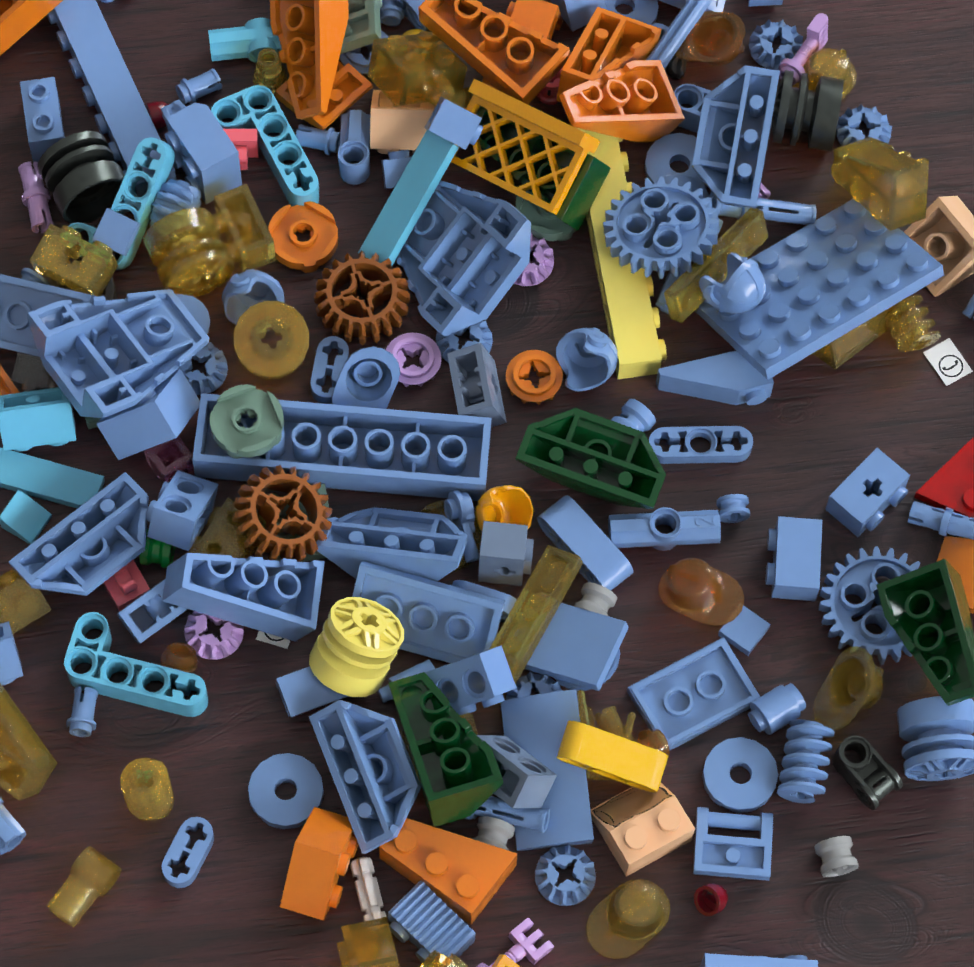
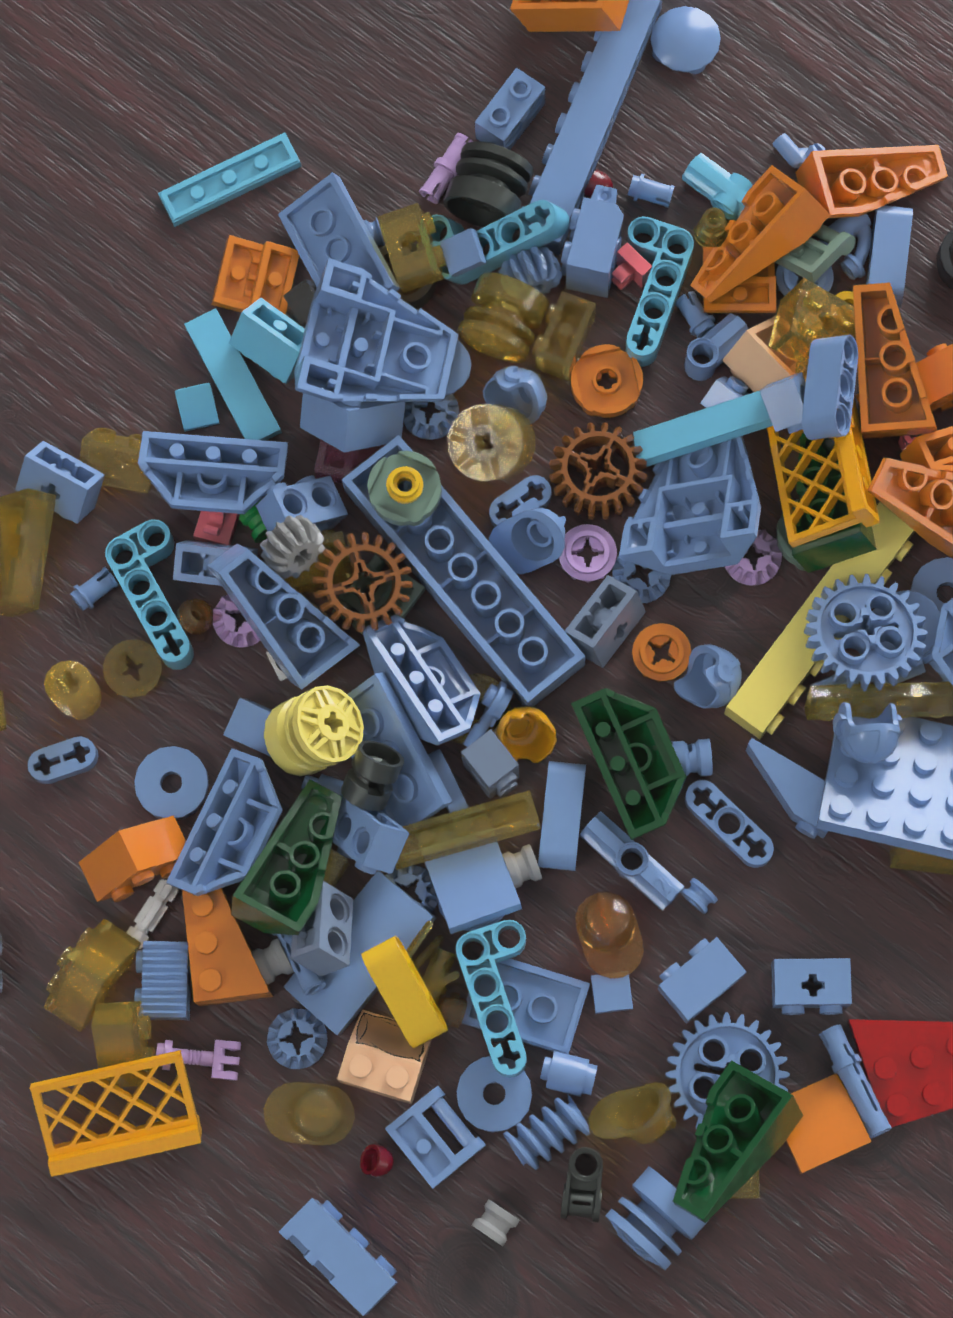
camera: 55 degrees right, 10 degrees up
(163, 725) = (115, 665): none -> clear yellow gear
(211, 527) = (292, 546): none -> light grey gear
(247, 404) = (404, 474): none -> yellow plate
(432, 641) = (372, 775): none -> pearl dark grey wheel
(474, 84) = (830, 387): none -> medium blue beam
(680, 702) = (498, 1001): none -> medium azure beam

